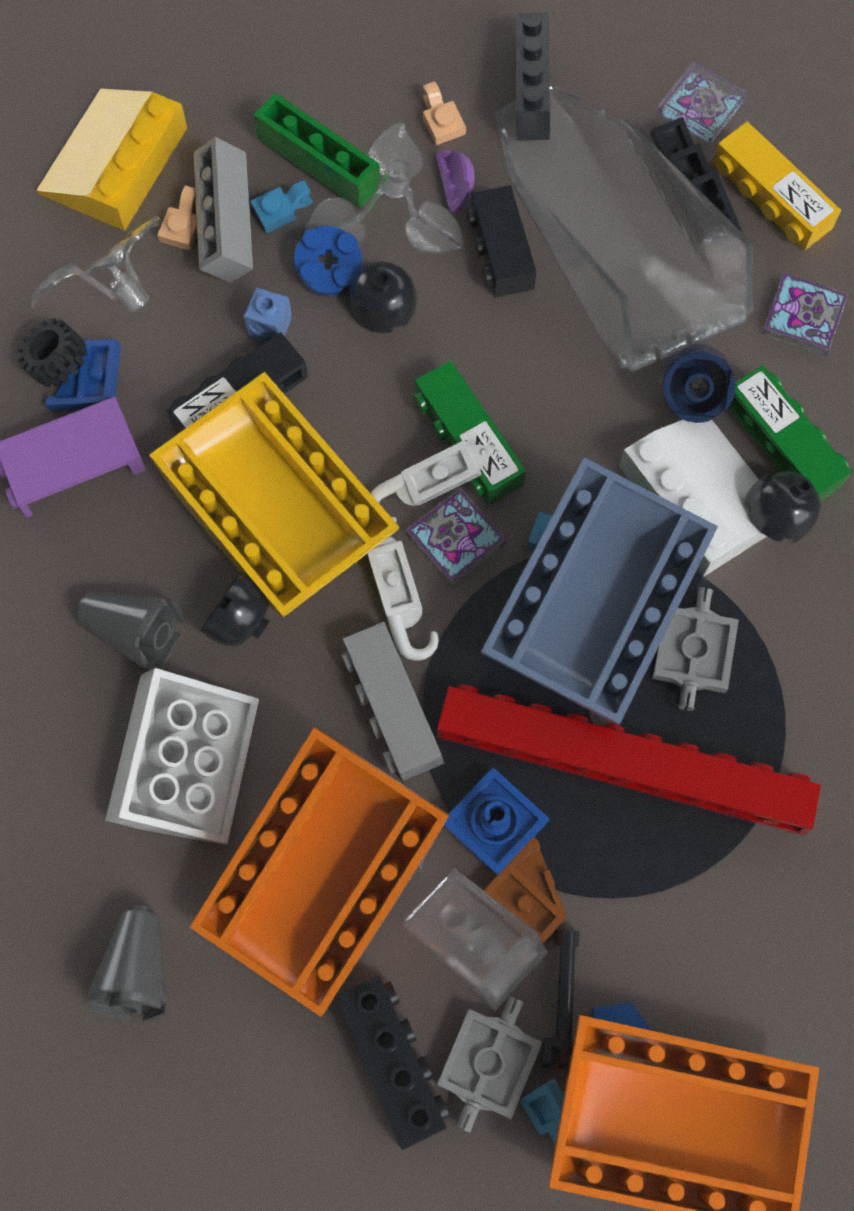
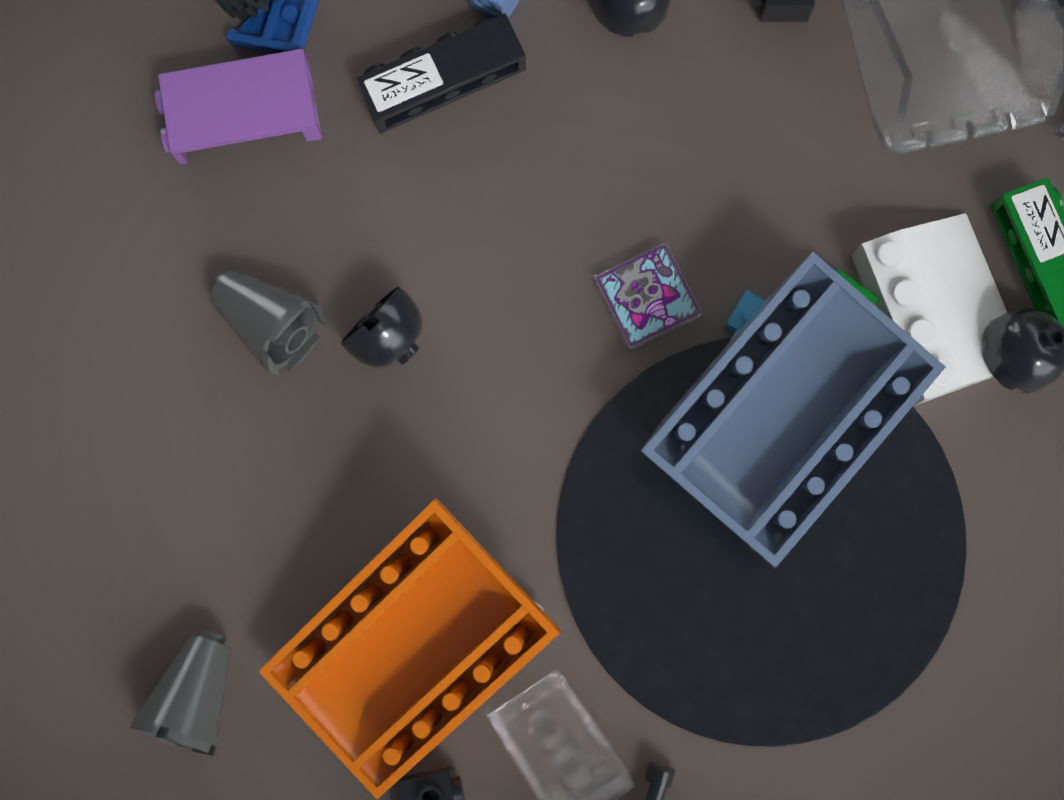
camera: 15 degrees right, 10 degrees up
(182, 758) = (292, 479): white slope -> none
(273, 494) = (454, 205): yellow slope -> none
(393, 702) = (532, 469): light grey brick -> none
(399, 596) = (567, 348): white plate -> none
(436, 474) = (635, 225): white plate -> none
(460, 417) = (690, 179): green brick -> none
(495, 821) = (613, 630): blue plate -> none
(529, 891) = (631, 717): dark orange wing -> none
(629, 760) = (779, 600): red brick -> none
(697, 650) = (886, 493): light grey plate -> none
(711, 396) = (977, 201): dark blue brick -> none

